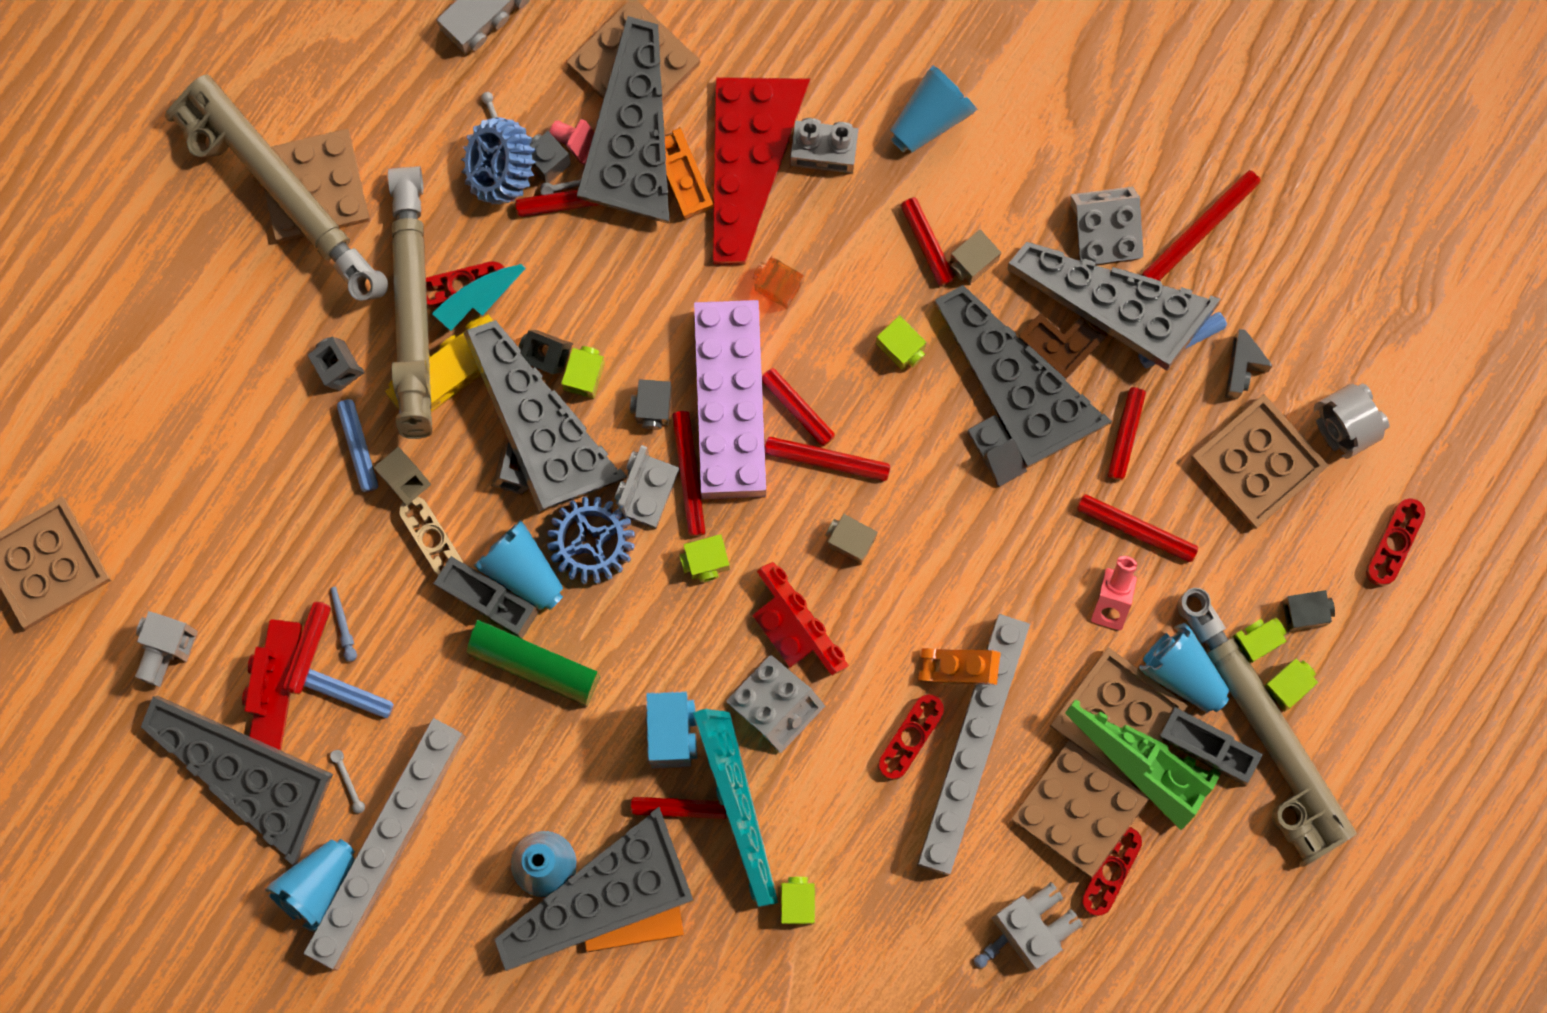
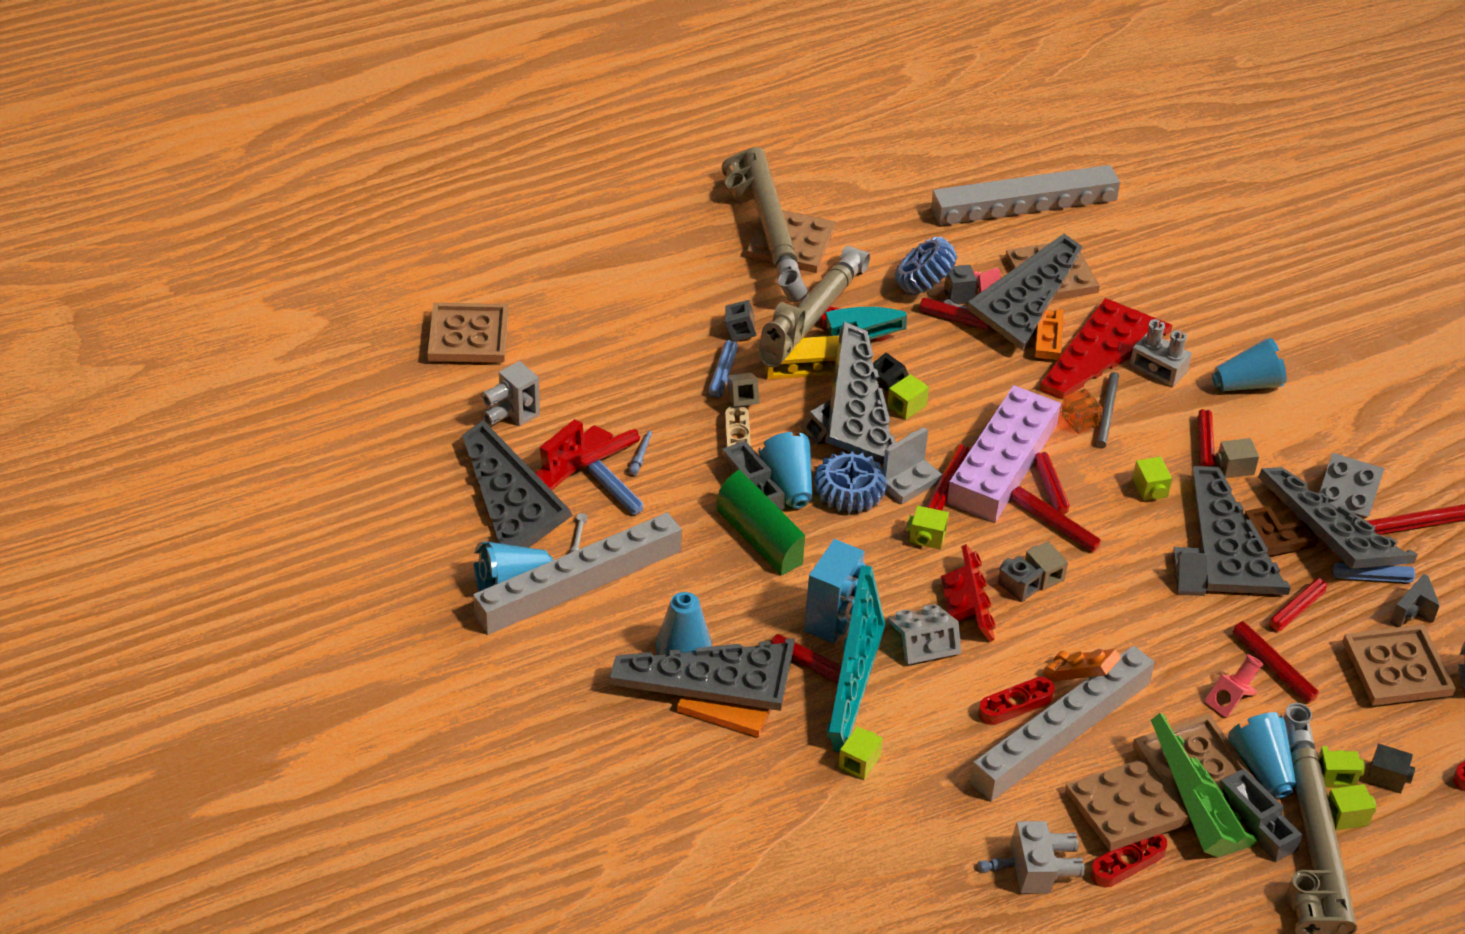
camera: 30 degrees right, 35 degrees down
(652, 403) = (947, 432): dark grey brick -> none
(802, 256) = (1107, 410): none -> dark grey bar
(839, 581) = (1020, 578): none -> dark grey brick

